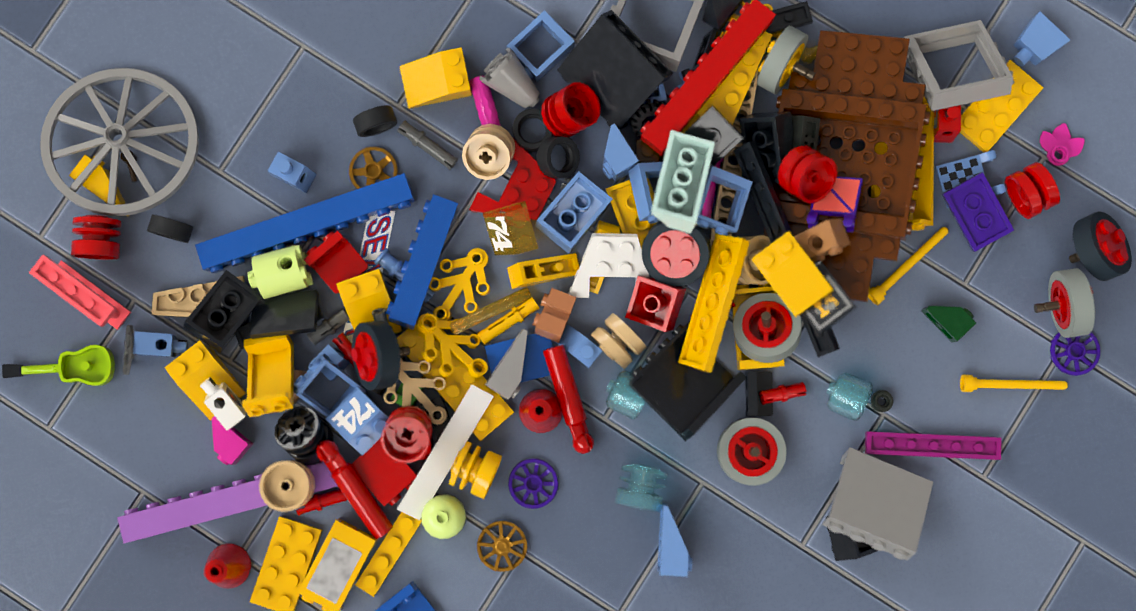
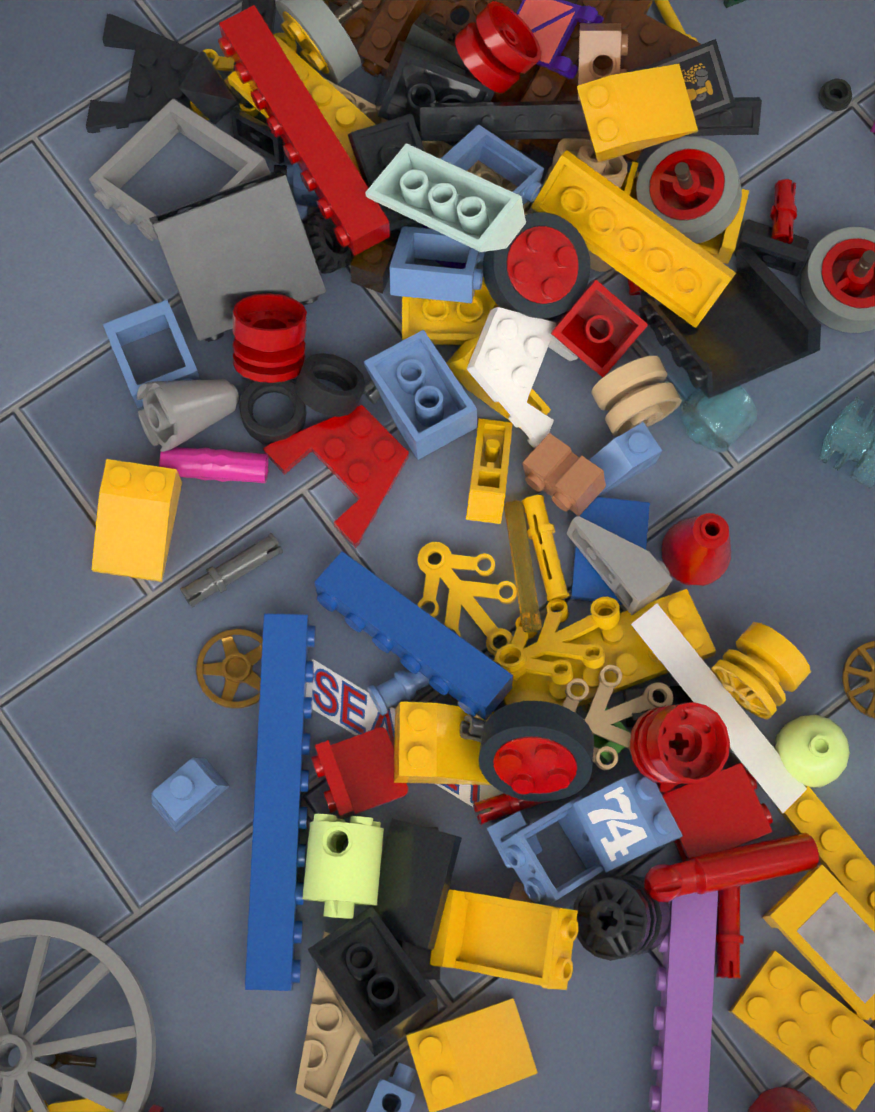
camera: 80 degrees left, 10 degrees down
(170, 228) = (201, 1023): black tyre -> none
(226, 411) = (525, 1031): white torso -> none
(229, 444) = (586, 1051): dark pink slope -> none
(274, 490) = (720, 969): tan wheel -> none
(328, 326) = (455, 820): dark grey pin -> none
(374, 121) = (163, 631): black tyre -> none
(488, 151) = (282, 476): tan wheel -> none
(510, 229) = (412, 489): clear yellow slope -> none
(533, 483) = (801, 602): dark purple wheel -> none
(568, 397) = (691, 498): red piece -> none
(618, 156) = (360, 300): medium blue slope -> none
(849, 396) = (819, 126): clear light blue head -> none

